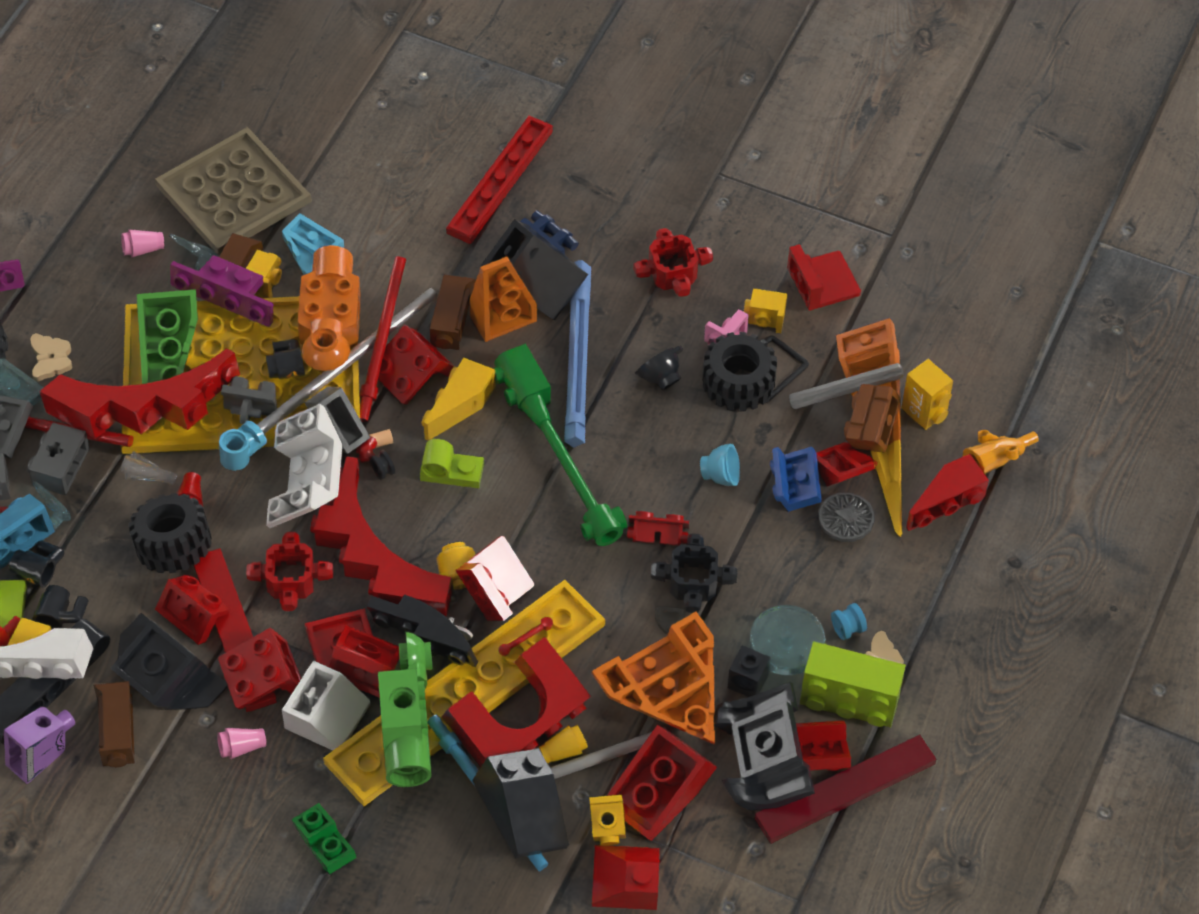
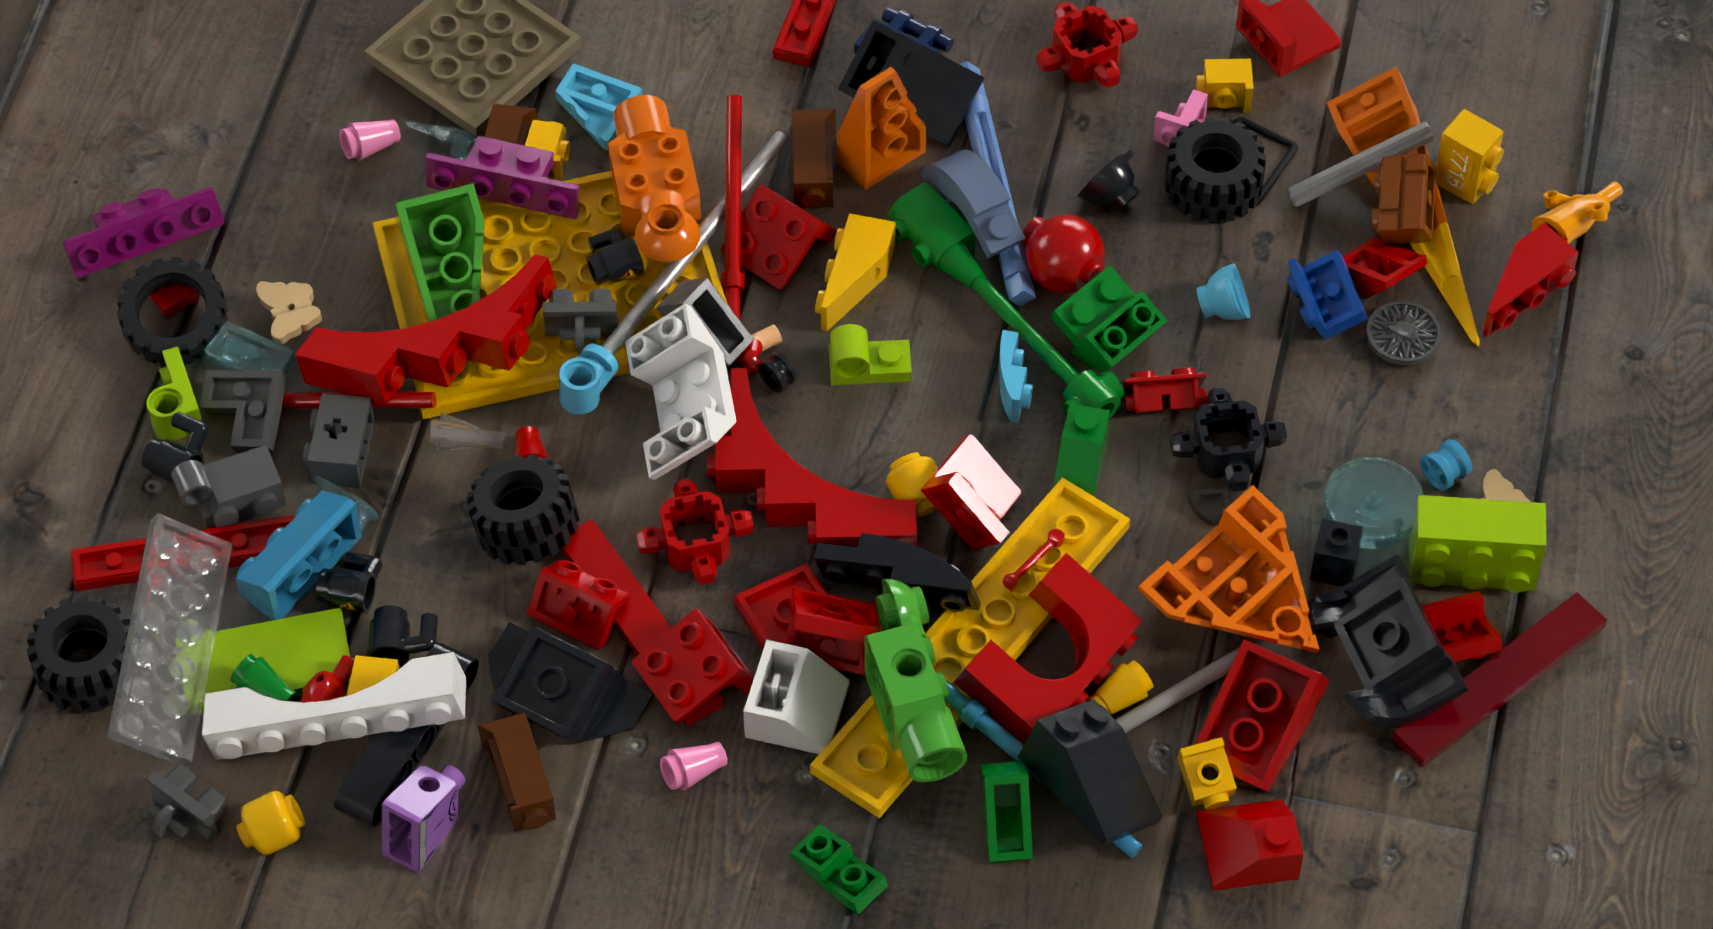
camera: 10 degrees left, 0 degrees up
(455, 818) = (1006, 811): none -> green slope
(550, 497) = (1012, 377): none -> medium azure slope
(559, 363) = (980, 197): none -> sand blue arch
(585, 560) = (1083, 446): none -> green slope
(611, 413) = (1063, 252): none -> red brick
(629, 468) = (1107, 320): none -> green brick

